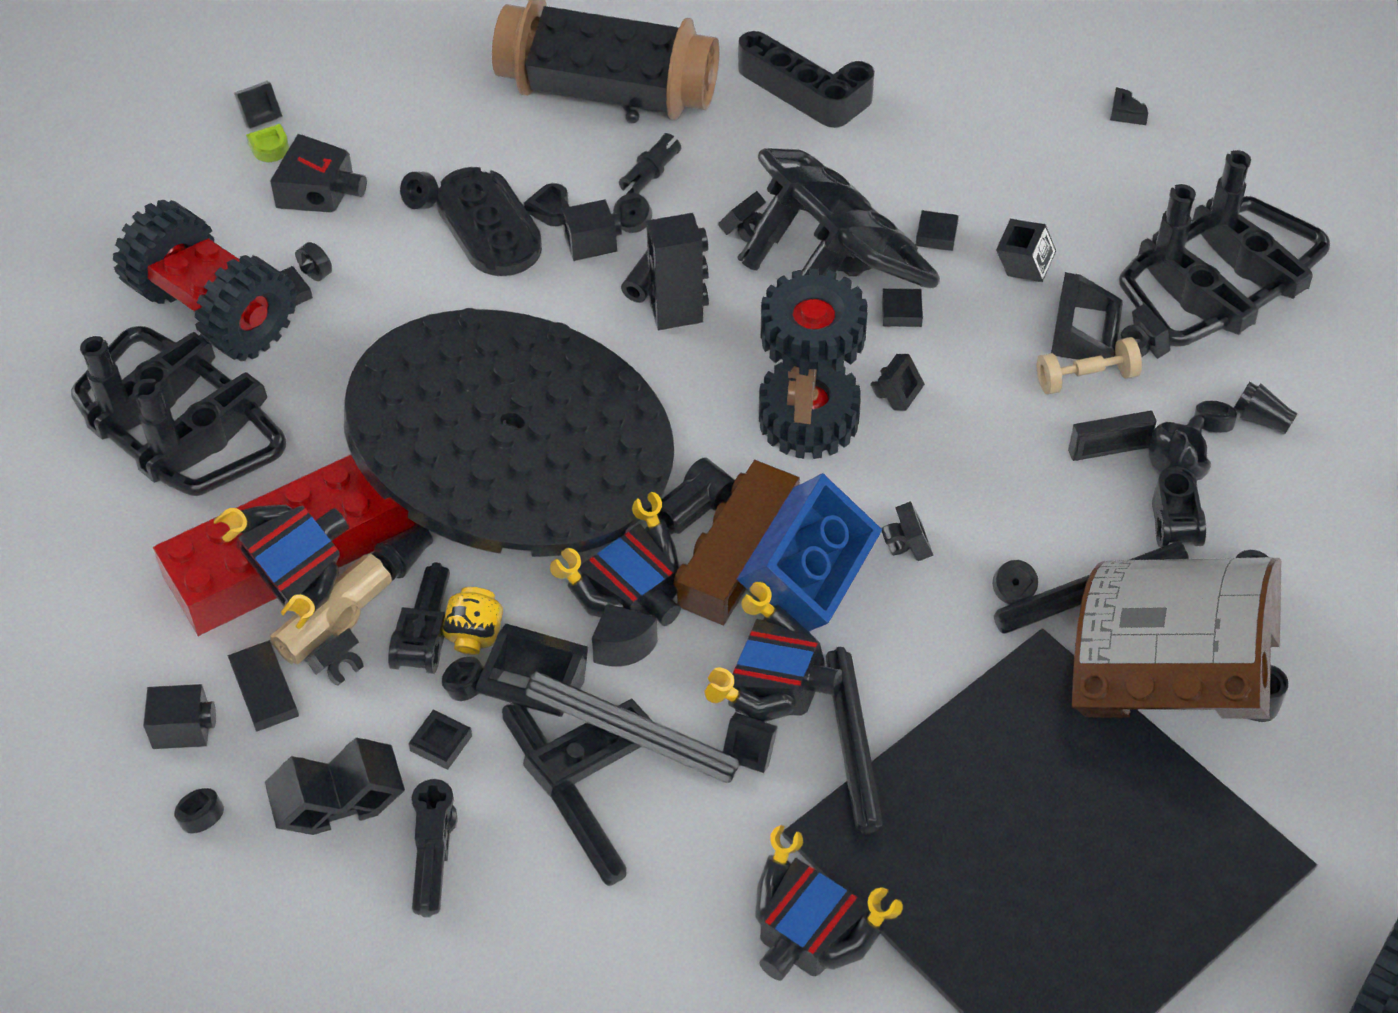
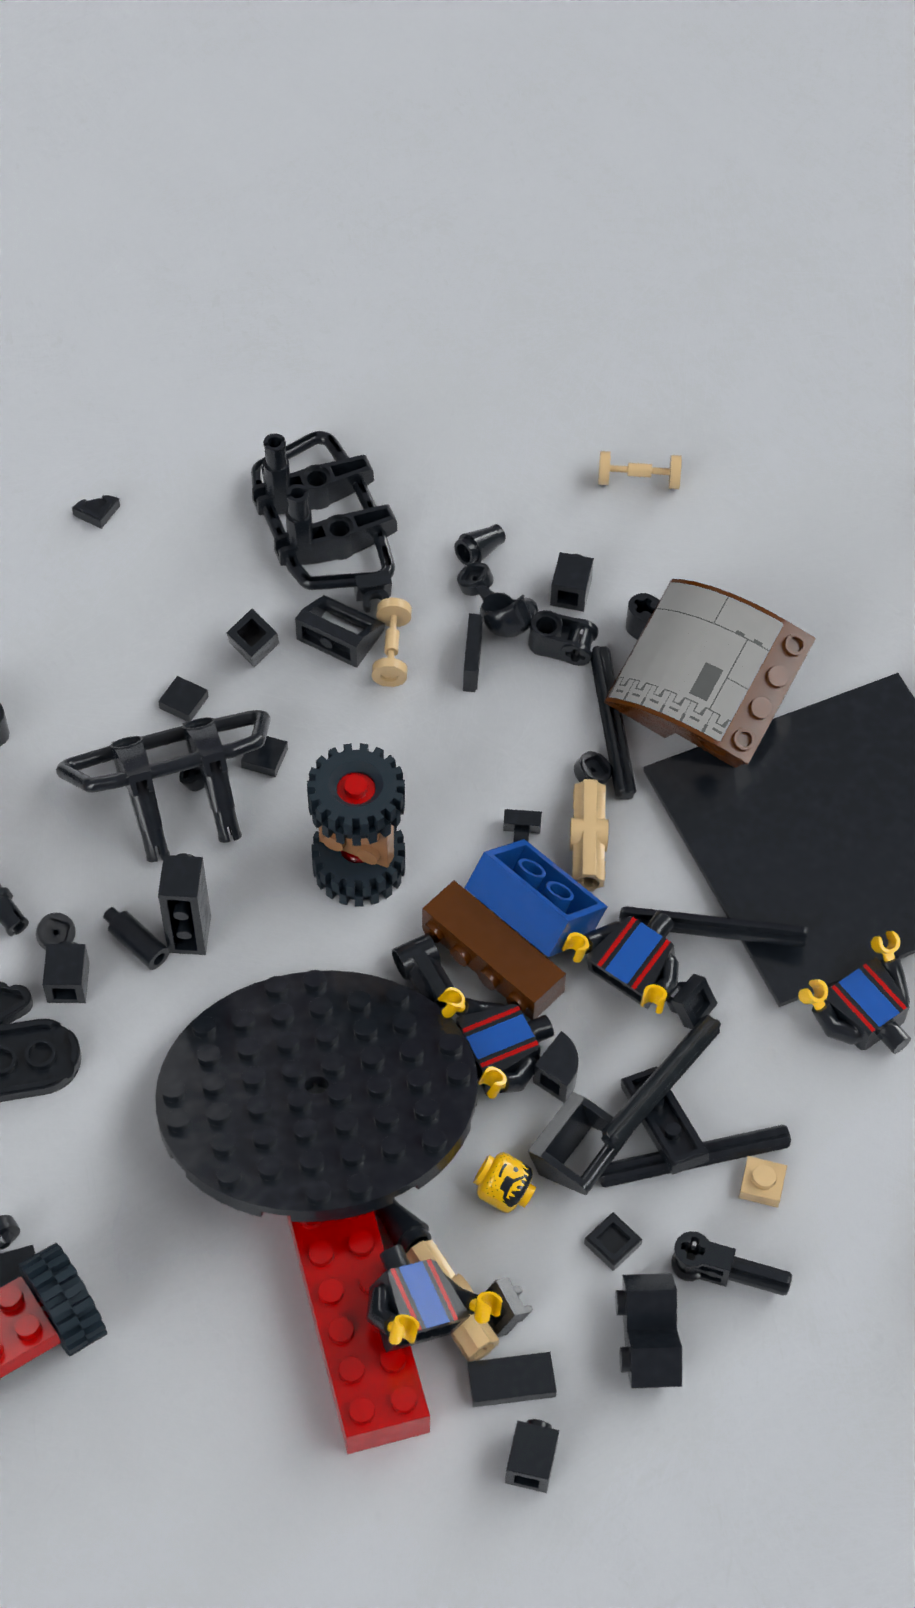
camera: 75 degrees left, 5 degrees up
(153, 389) = (122, 1436): black piece -> none
(199, 810) = (635, 1455): black tile -> none
(419, 629) = (497, 1230): black connector -> none
(462, 678) = (560, 1205): black tile -> none
(552, 866) = (762, 1181): none -> tan plate
(743, 216) = (104, 840): black tile -> none
(926, 596) = (589, 834): none -> tan piece
(1260, 500) = (571, 581): none -> black brick

